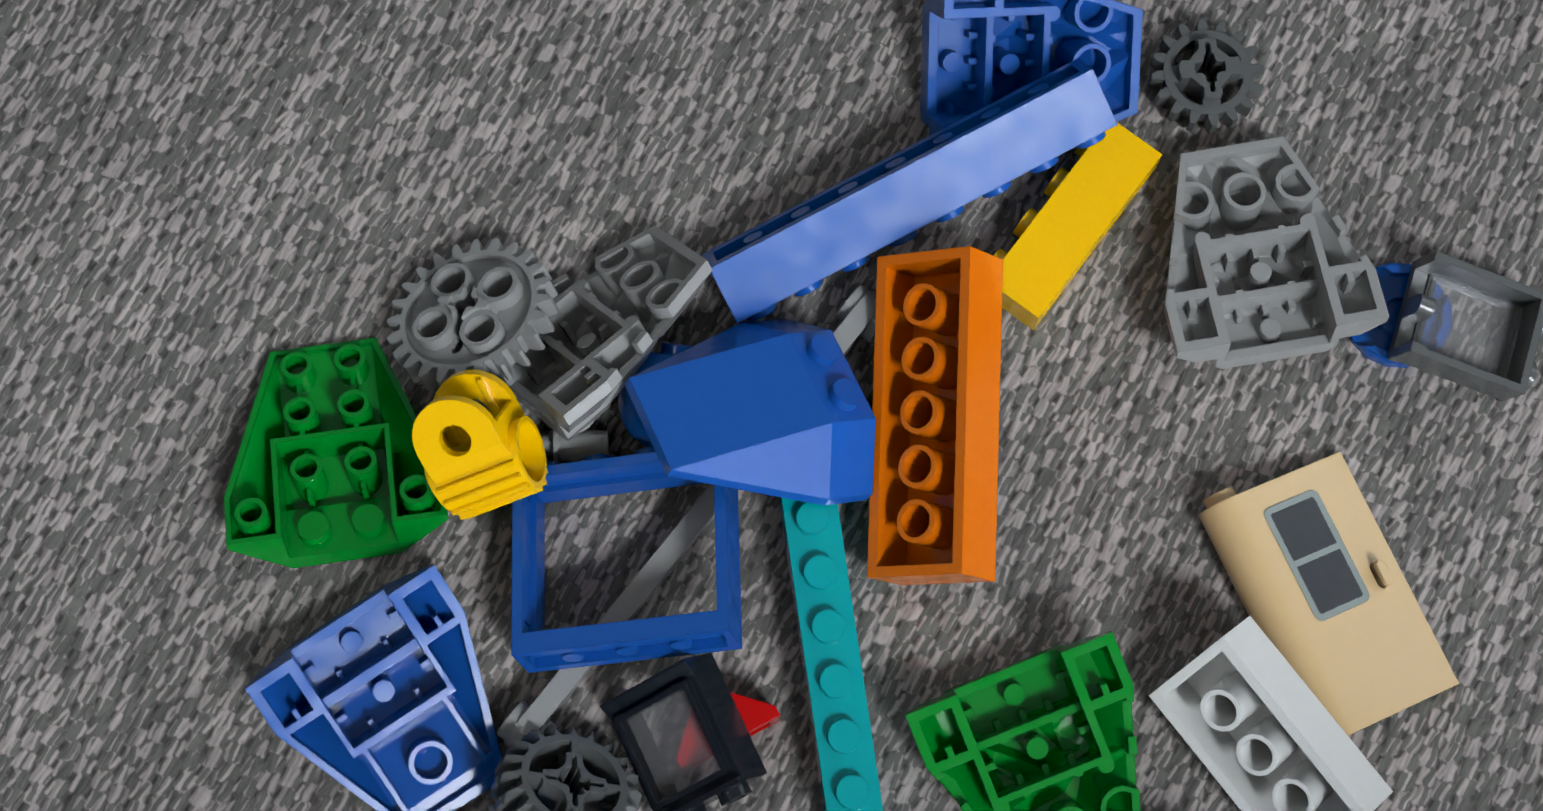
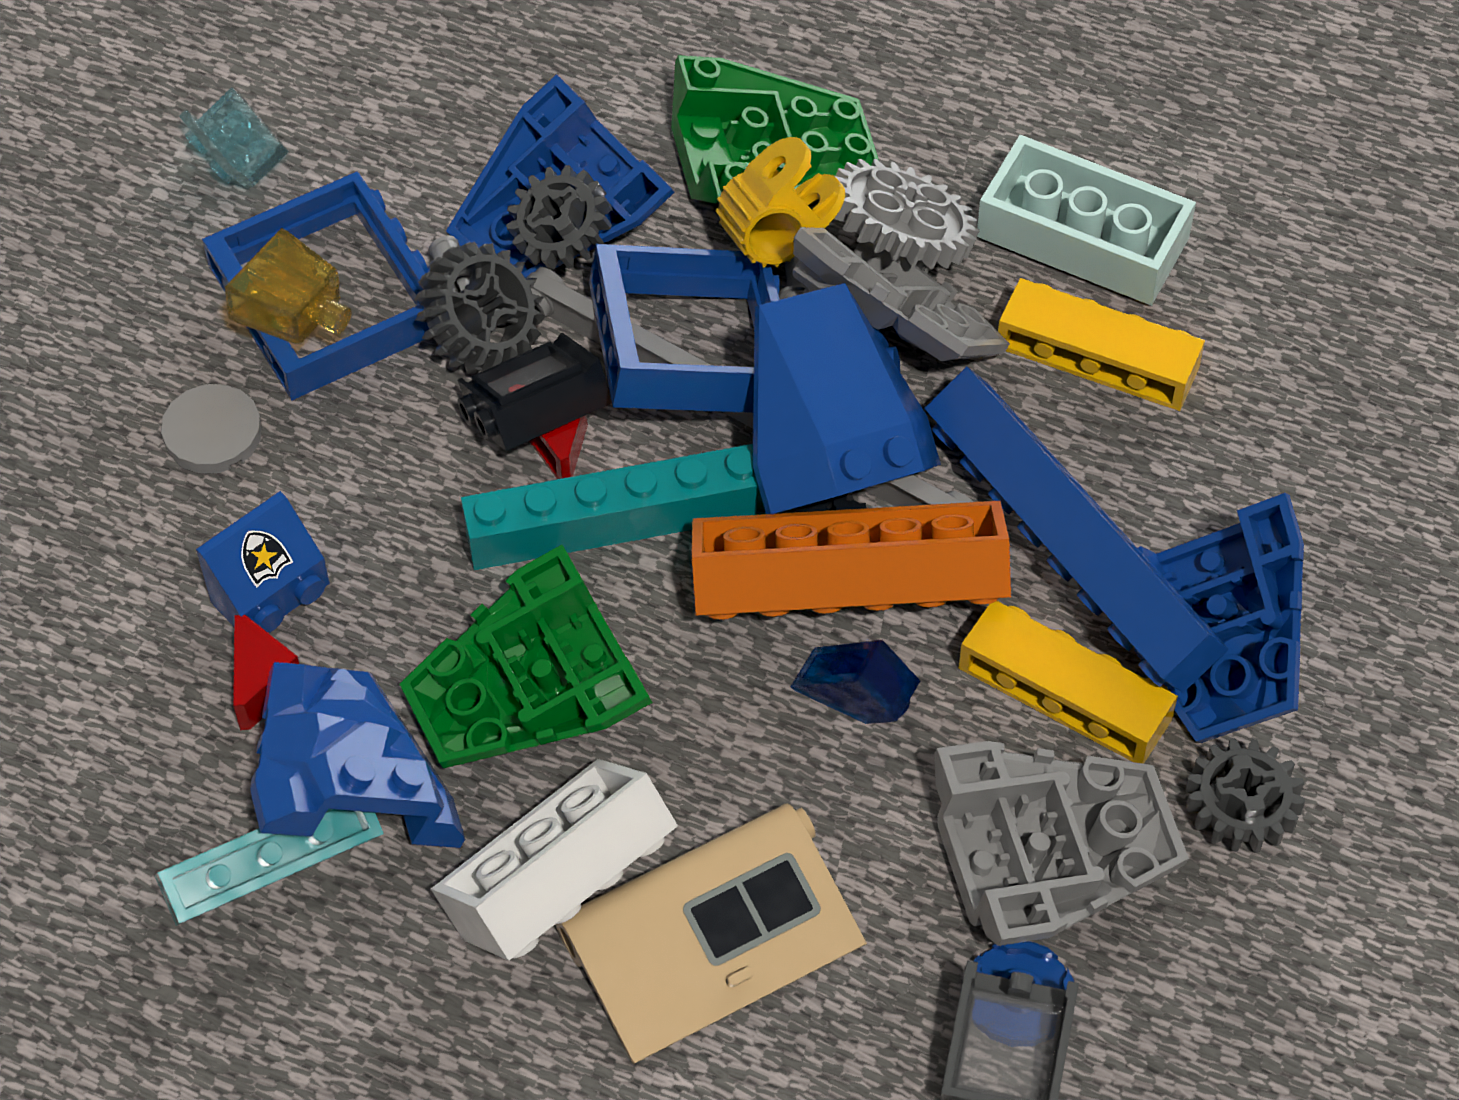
camera: 90 degrees right, 20 degrees down
(474, 689) = (559, 217): none -> dark grey gear
(495, 123) = (1085, 219): none -> light aqua brick
(655, 133) = (1101, 343): none -> yellow brick
(1058, 431) = (858, 680): none -> clear blue slope

